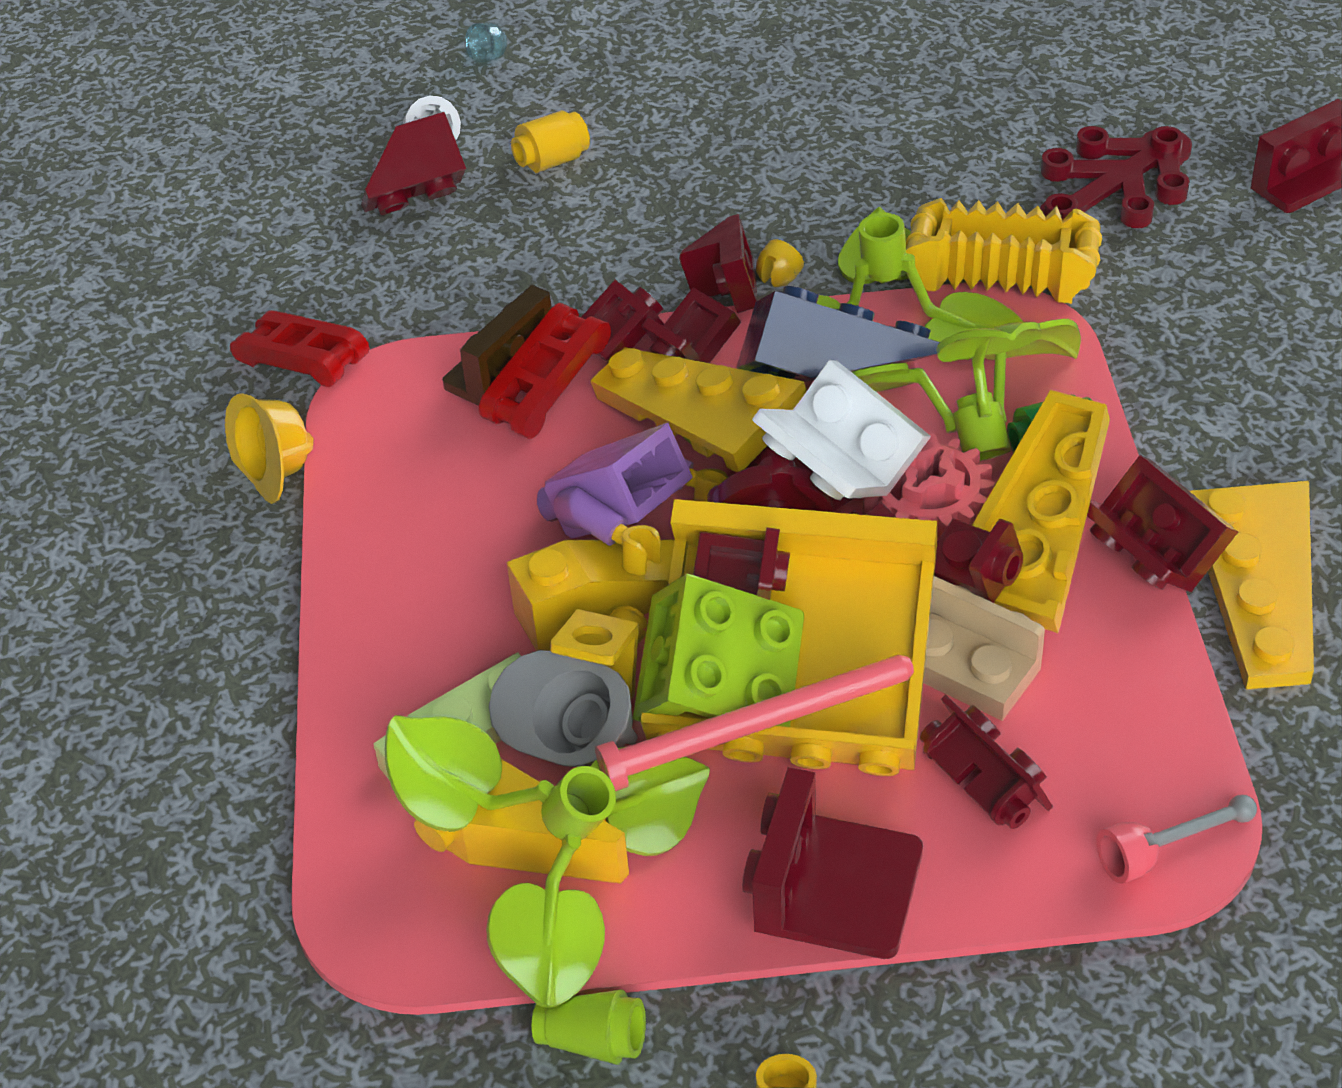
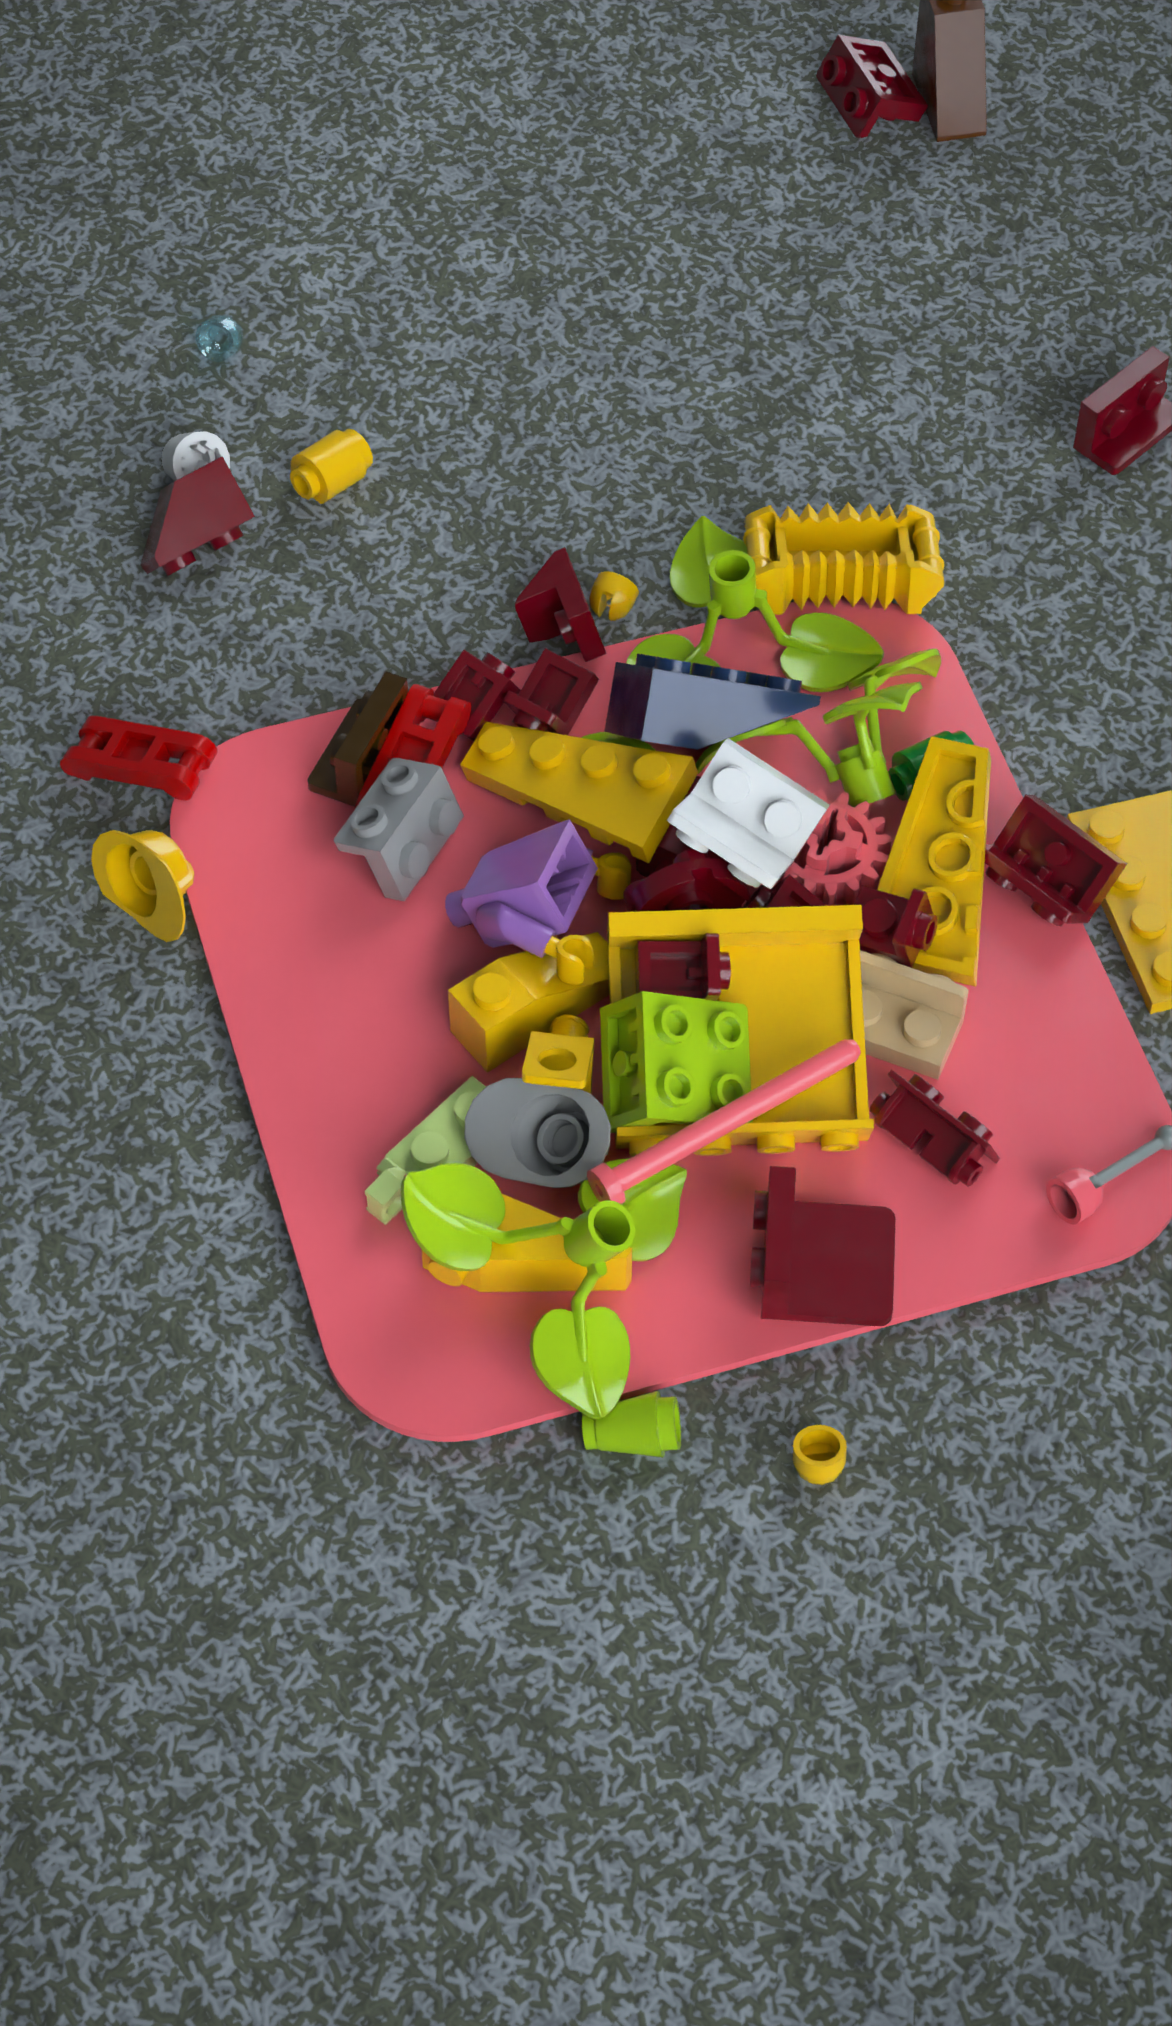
camera: 15 degrees left, 10 degrees up
(516, 422) = (402, 824): none -> light grey bracket
(1159, 148) = (939, 445): dark red plant -> none

